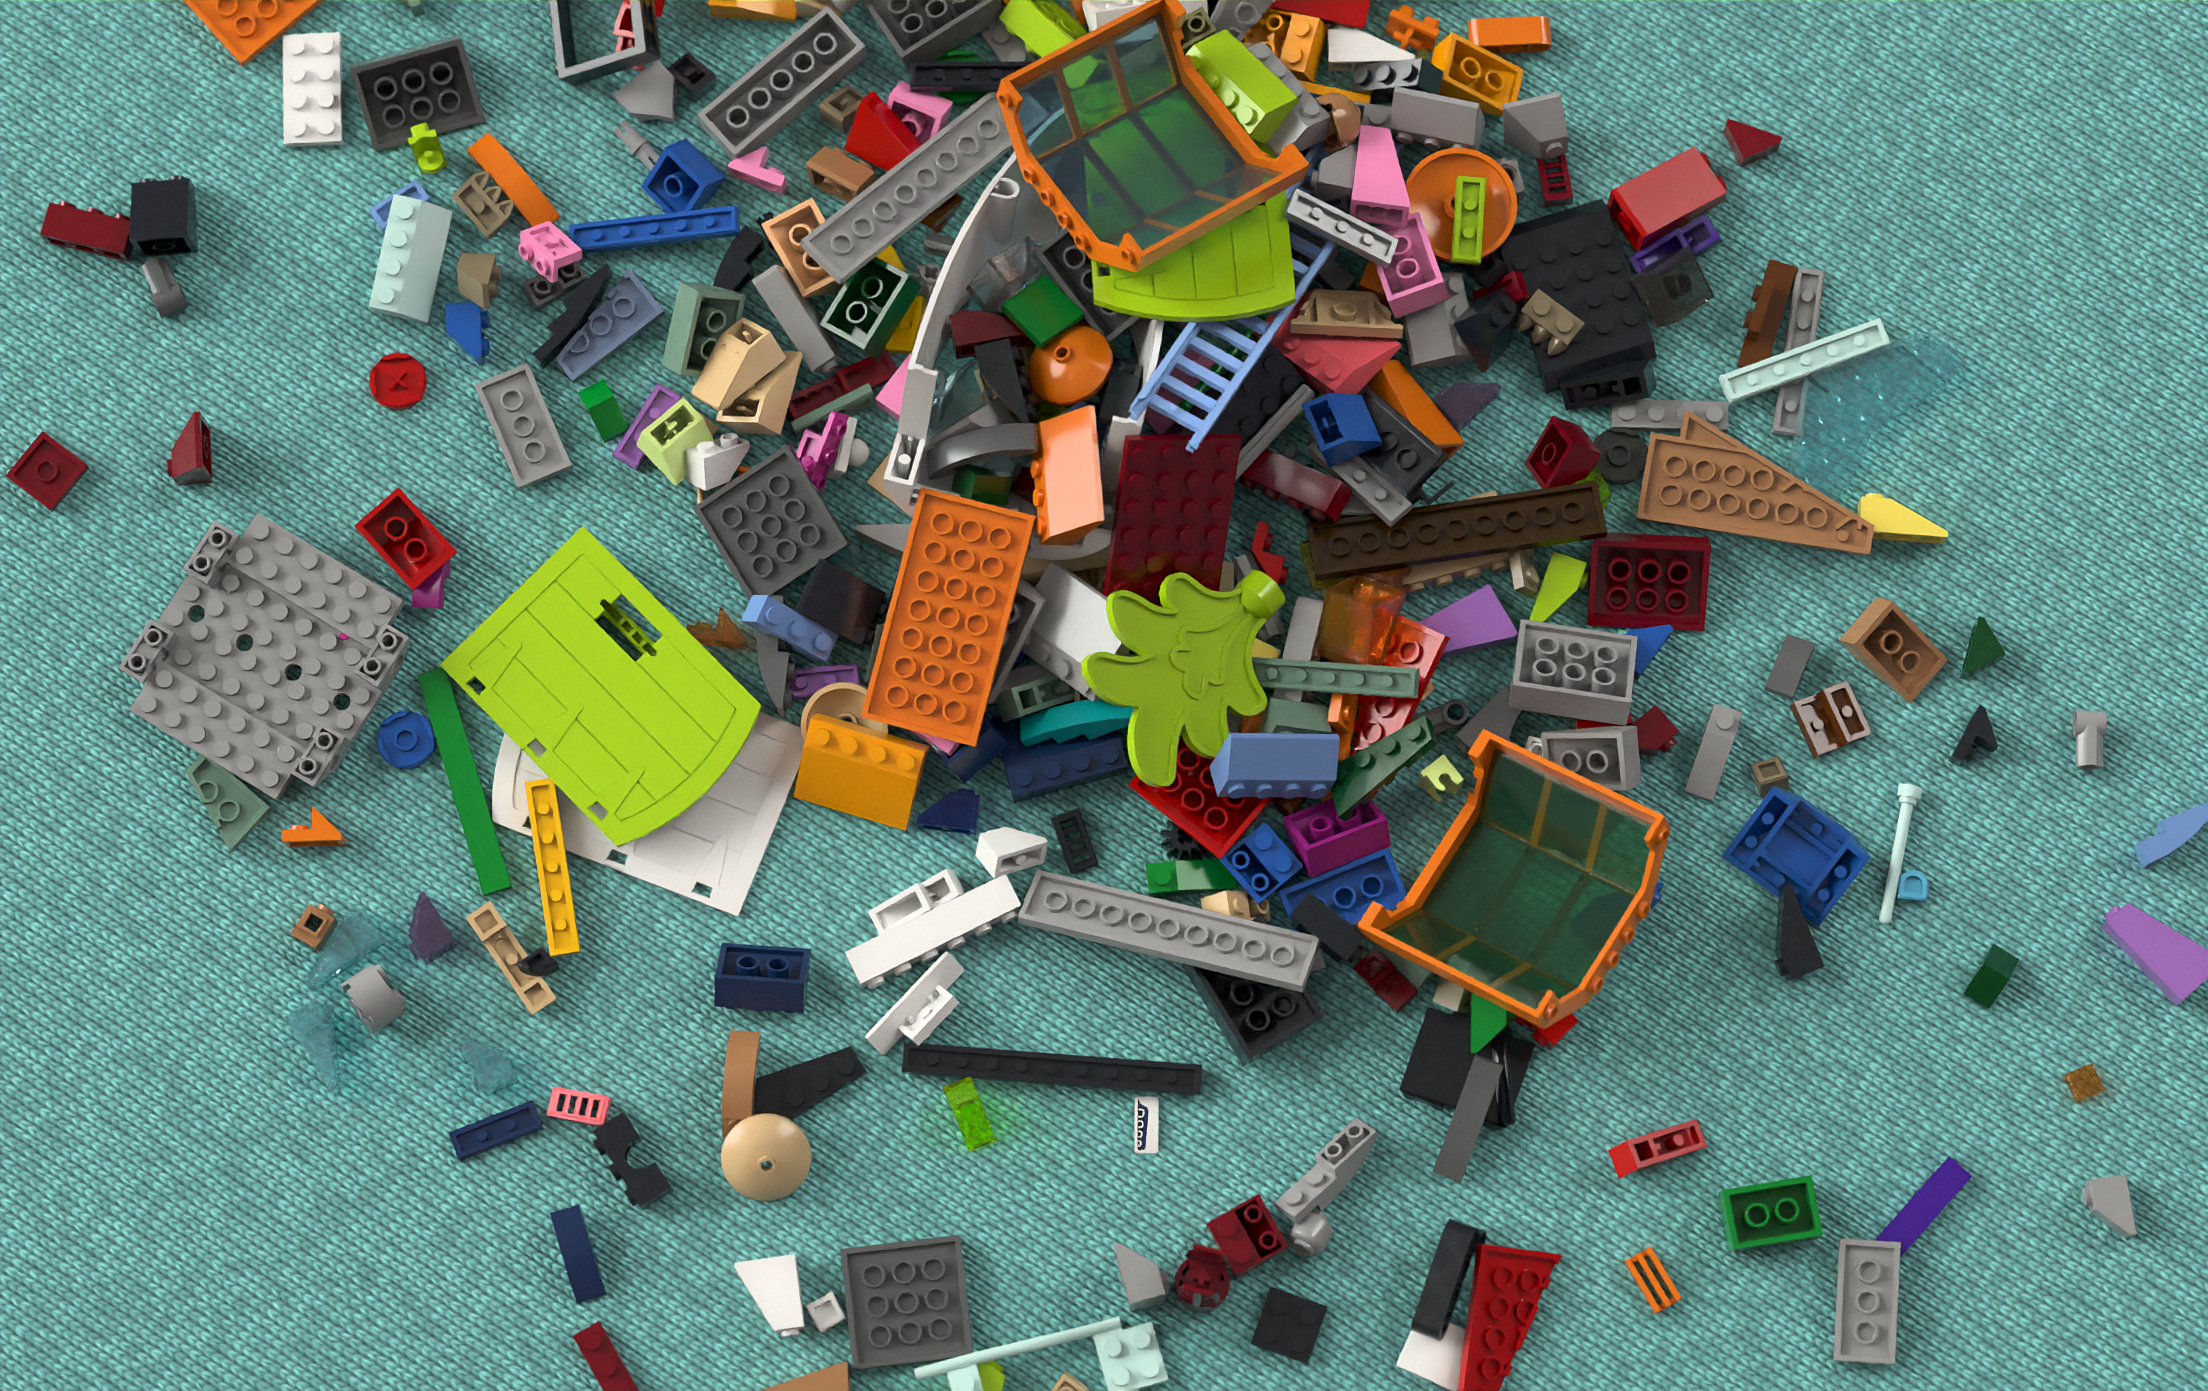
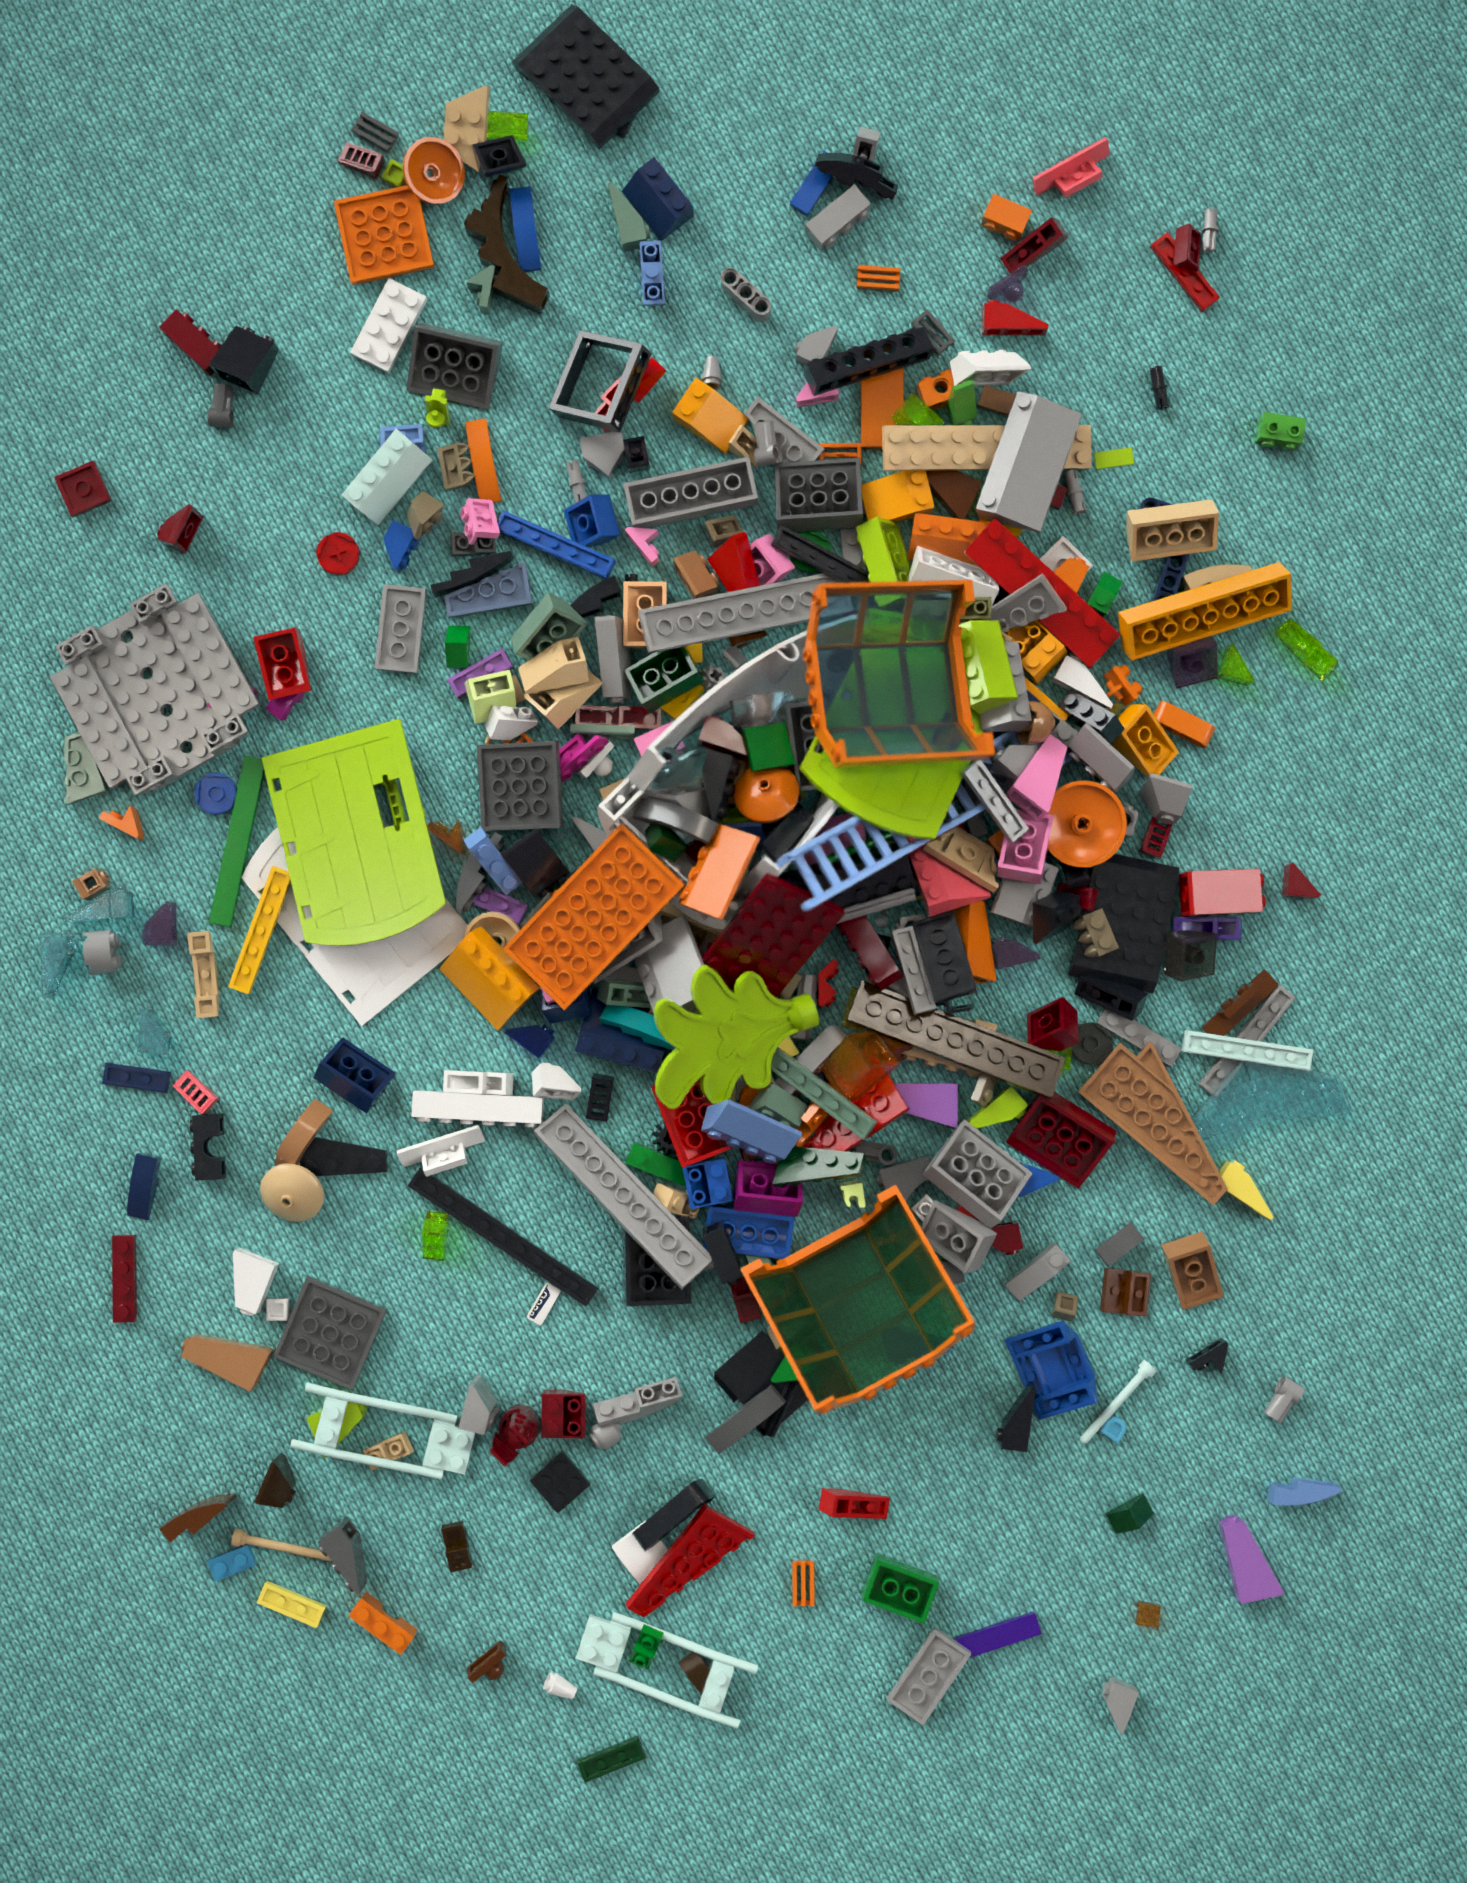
camera: 30 degrees right, 10 degrees up
(538, 964) = (217, 987): black tile -> none
(1341, 426) = (920, 931): blue slope -> none
(1468, 220) = (1082, 838): lime tile -> none
(1982, 649) = (1248, 1303): dark green slope -> none

